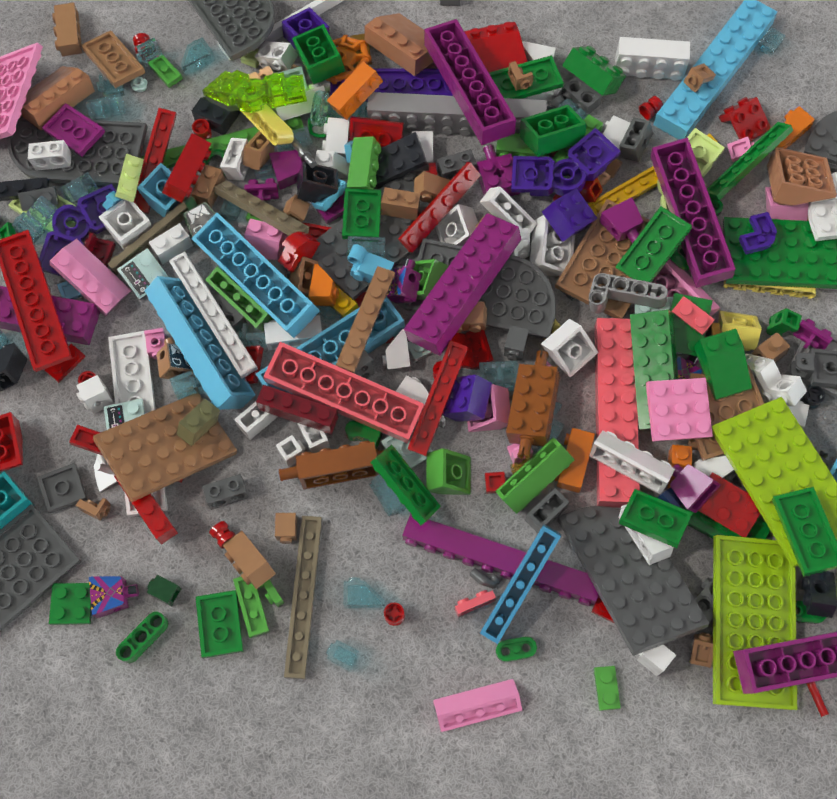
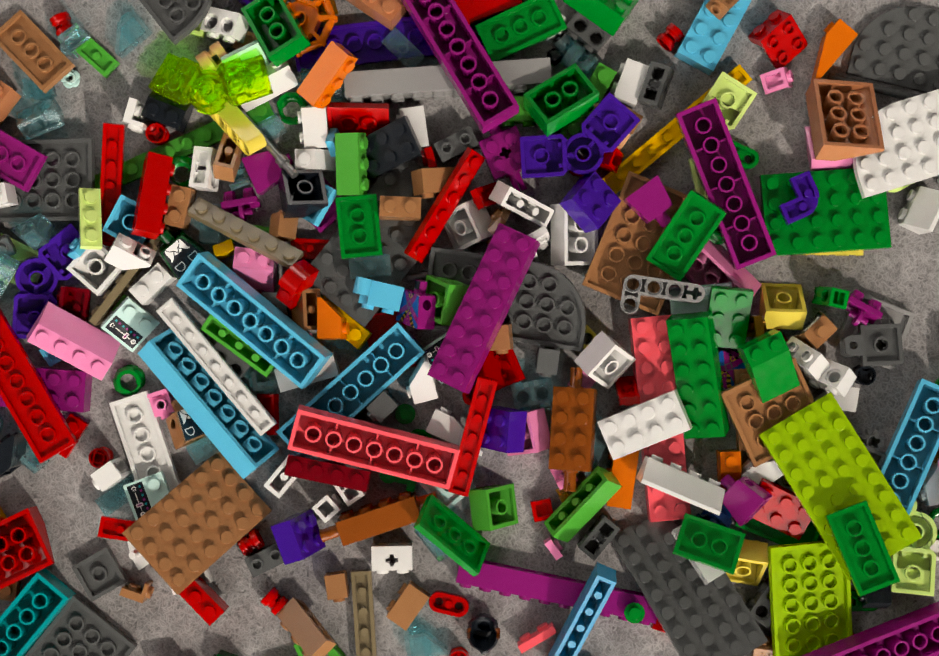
camera: 15 degrees left, 20 degrees up
(27, 378) = (31, 462): none -> clear light blue plate
(93, 420) = (114, 498): none -> clear light blue plate
(141, 322) = (133, 370): none -> green piece
(154, 208) = (129, 254): none -> white slope
(184, 111) = (133, 116): none -> white bracket
(198, 422) = (226, 495): olive brick -> none
(210, 476) = (250, 542): none -> red wheel
(240, 223) = (224, 249): none -> yellow slope
(257, 471) = (298, 536): none -> dark purple brick
(319, 108) = (287, 94): clear light blue plate -> none
(336, 501) = (382, 551): none -> white brick
(351, 554) = (407, 605): none -> medium nougat brick
(365, 319) = (384, 362): medium nougat plate -> none
(378, 378) = (405, 413): none -> green plate
(392, 560) = (448, 605): none -> red plate
(419, 85) = (402, 48): none -> clear light blue plate
(422, 590) = (483, 632): none -> black hair
(474, 206) = (481, 196): none -> red plate
(479, 577) = (542, 612): dark grey arm -> none
(502, 518) = (554, 547): none -> bright pink plate
(518, 79) = (511, 28): medium nougat bracket -> none
(575, 584) = (634, 612): none -> green plate
(587, 382) = (627, 391): none -> red plate
(602, 404) = (645, 424): none -> white brick
(679, 409) = (725, 422): bright pink plate -> none
(692, 315) = (733, 312): coral plate -> none
(692, 557) = (751, 563): none -> light yellow slope
(749, 160) = (785, 101): green plate -> none

